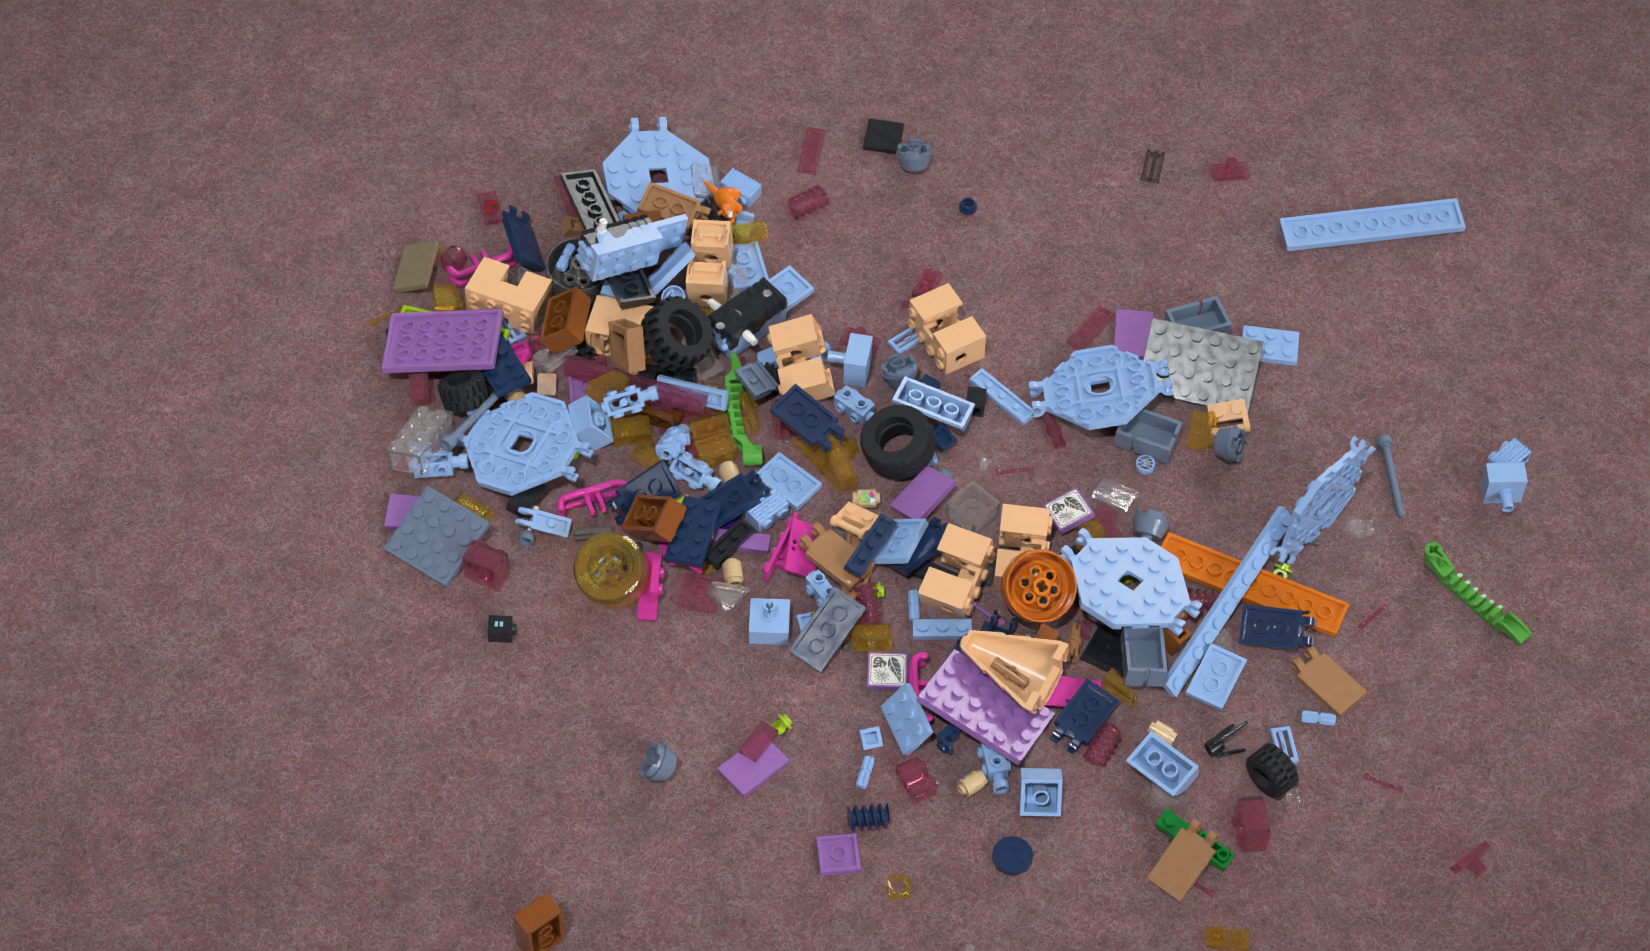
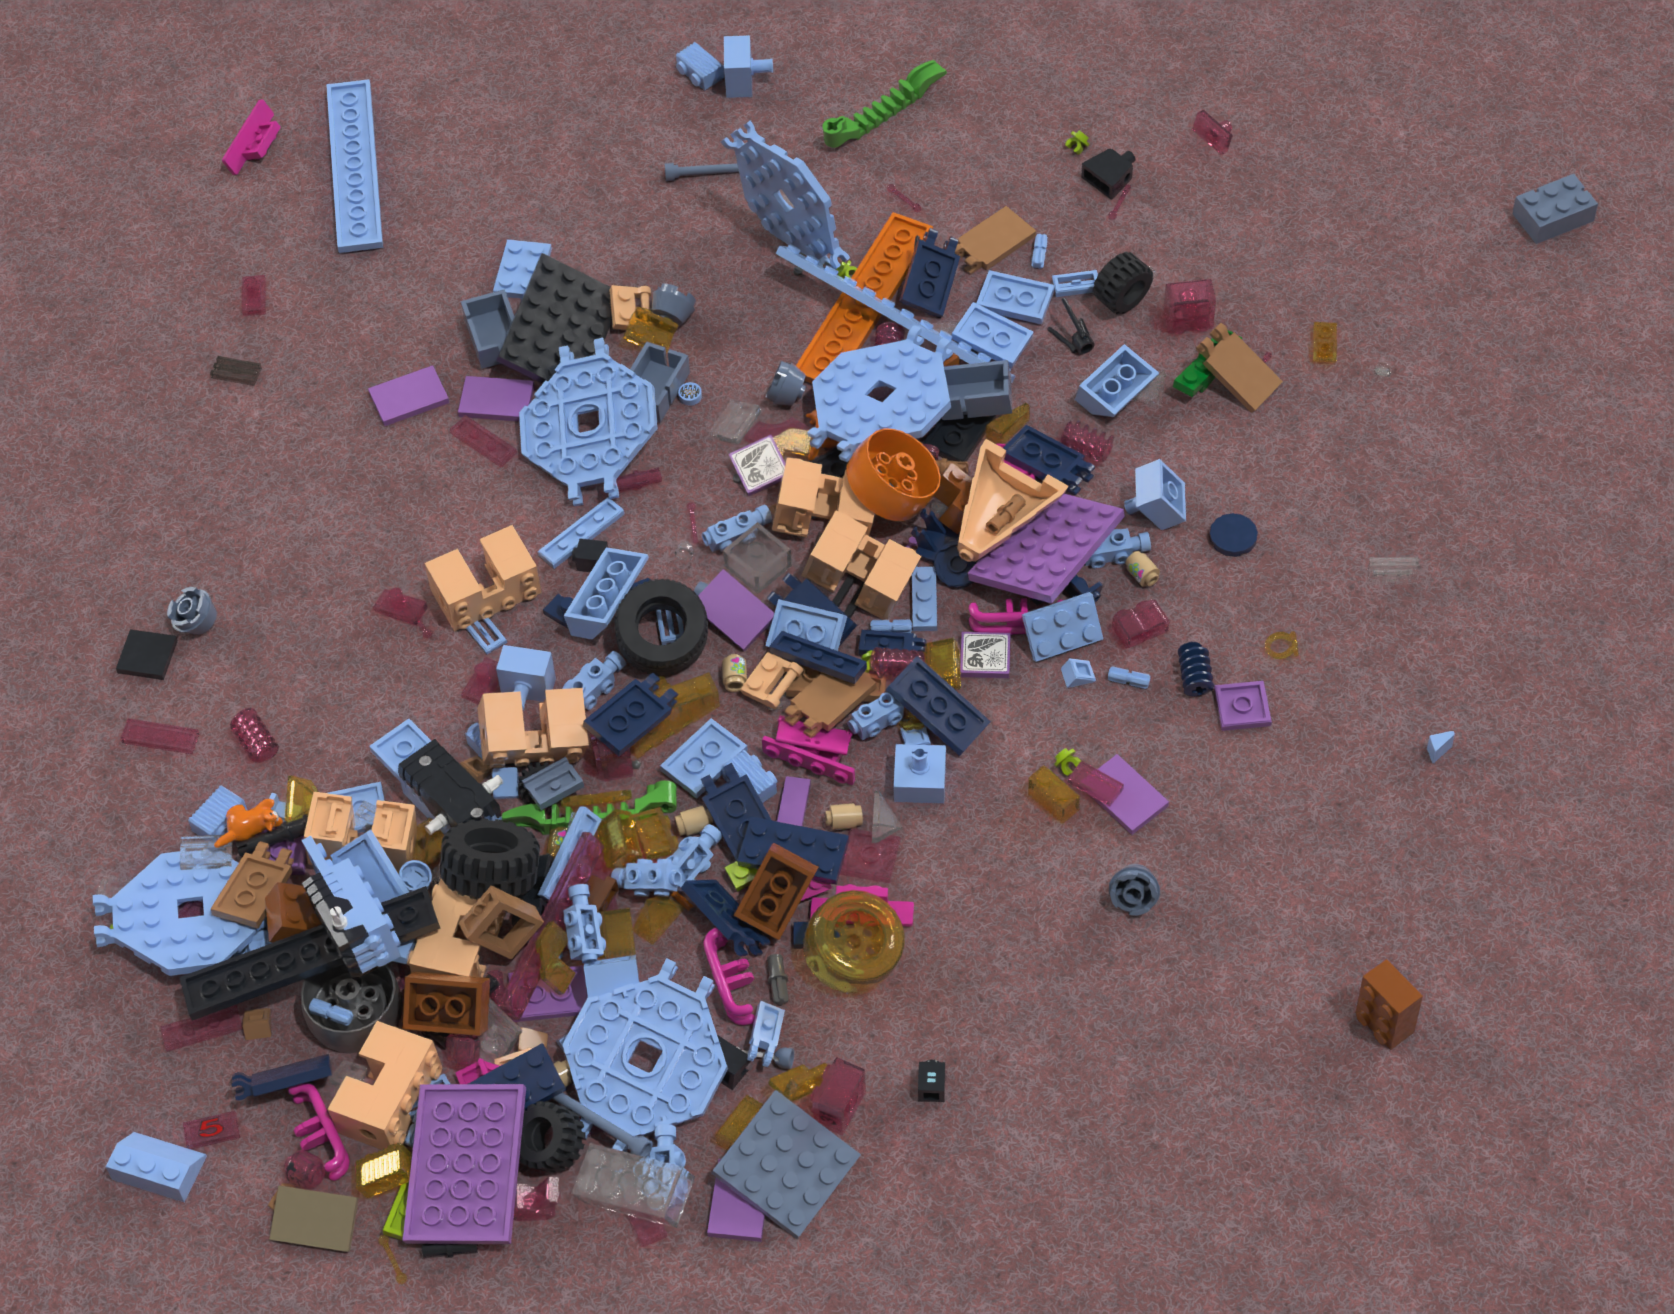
camera: 85 degrees left, 0 degrees up
(463, 178) = (155, 1166): none -> light blue slope
(501, 538) = (798, 1081): none -> clear yellow panel
(729, 542) = (790, 811): black tile -> none
(749, 712) = (1053, 794): none -> clear yellow brick
(895, 602) = (885, 639): none -> dark blue hinge
(897, 368) = (543, 629): sand blue cone -> none
(967, 202) = (274, 557): dark blue plate -> none
(996, 486) = (734, 527): none -> light blue brick
(1133, 277) = (408, 395): none -> medium lavender tile
(1163, 731) = (1067, 388): tan brick -> none
(1262, 697) = (1016, 297): none -> light blue plate
(1393, 154) = (252, 138): none -> dark pink bracket
(1413, 772) = (1109, 171): none -> black torso
(1451, 750) = (1078, 138): none -> lime plate

